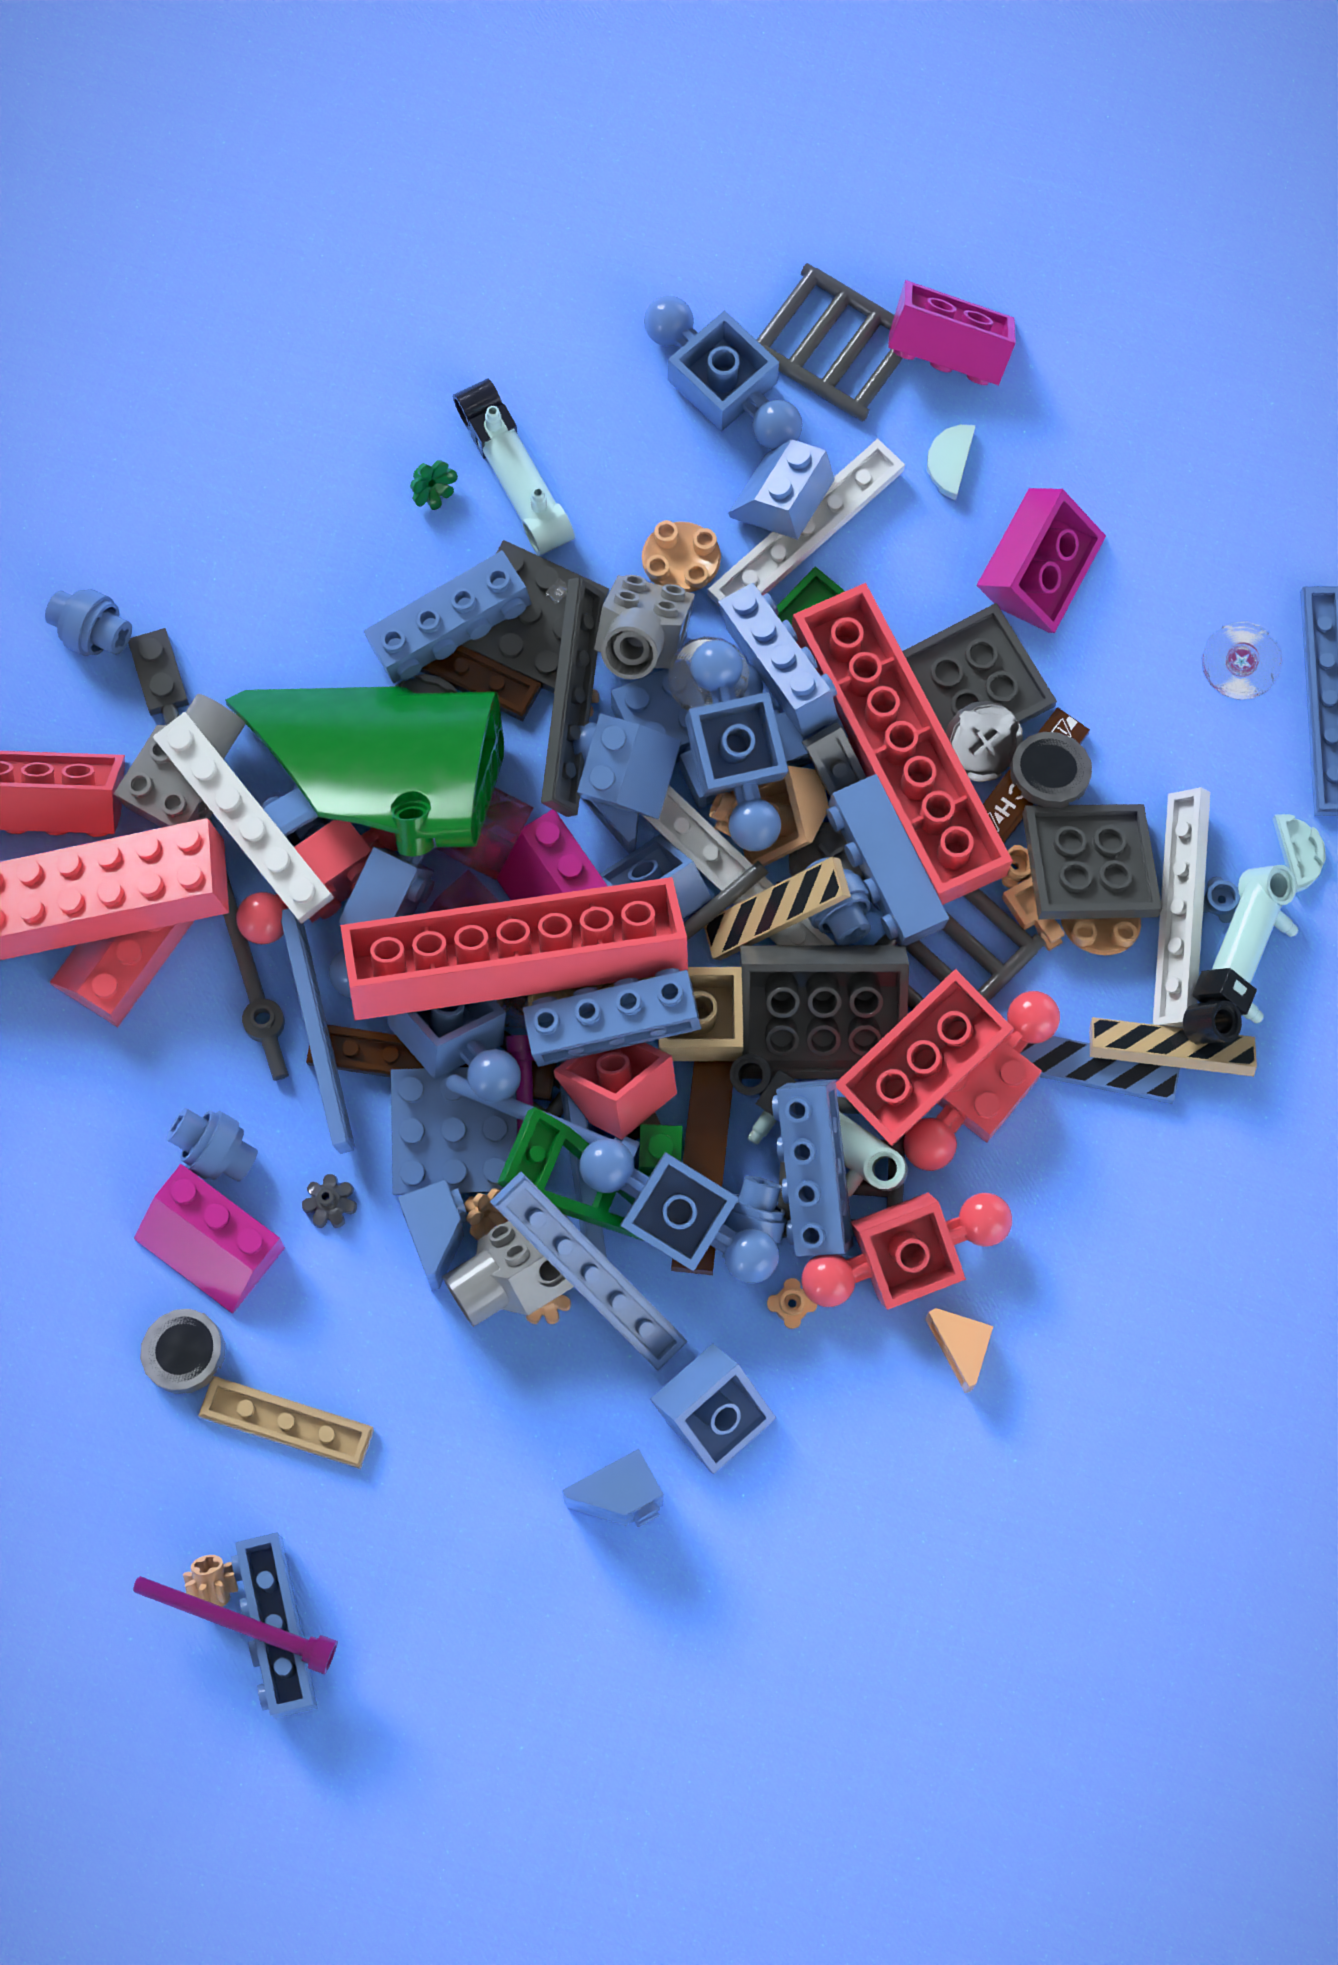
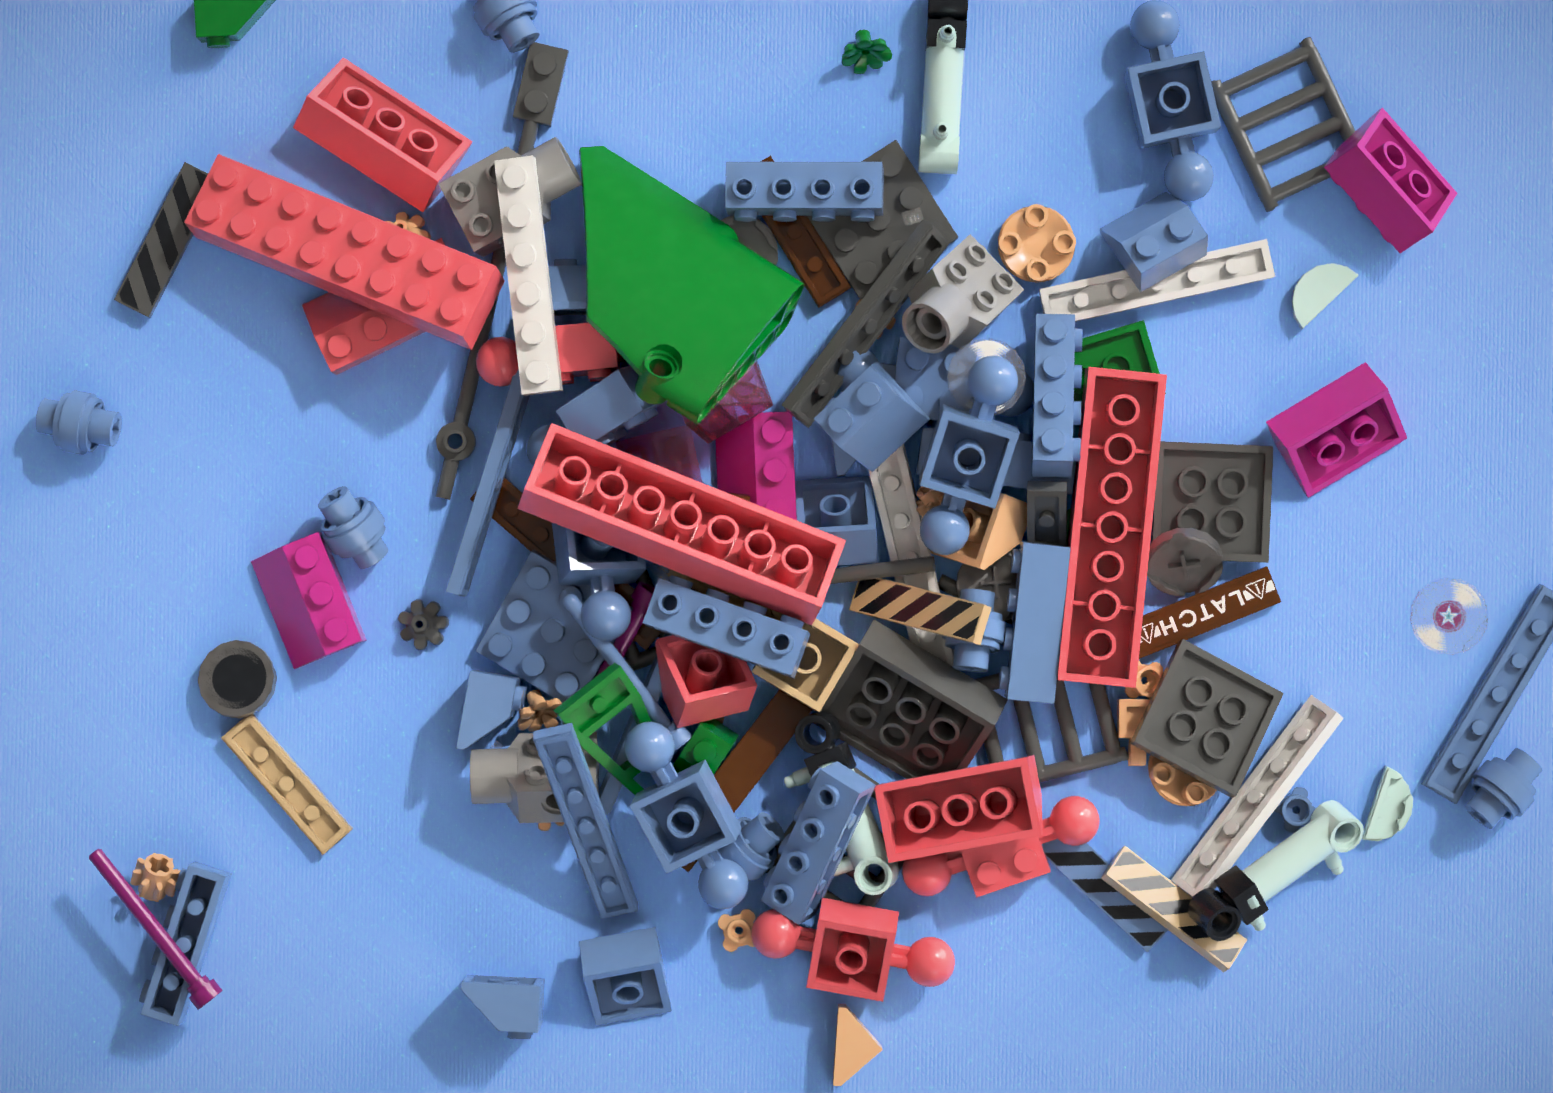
camera: 30 degrees right, 15 degrees up
(1051, 769) = (1223, 621): tile -> none

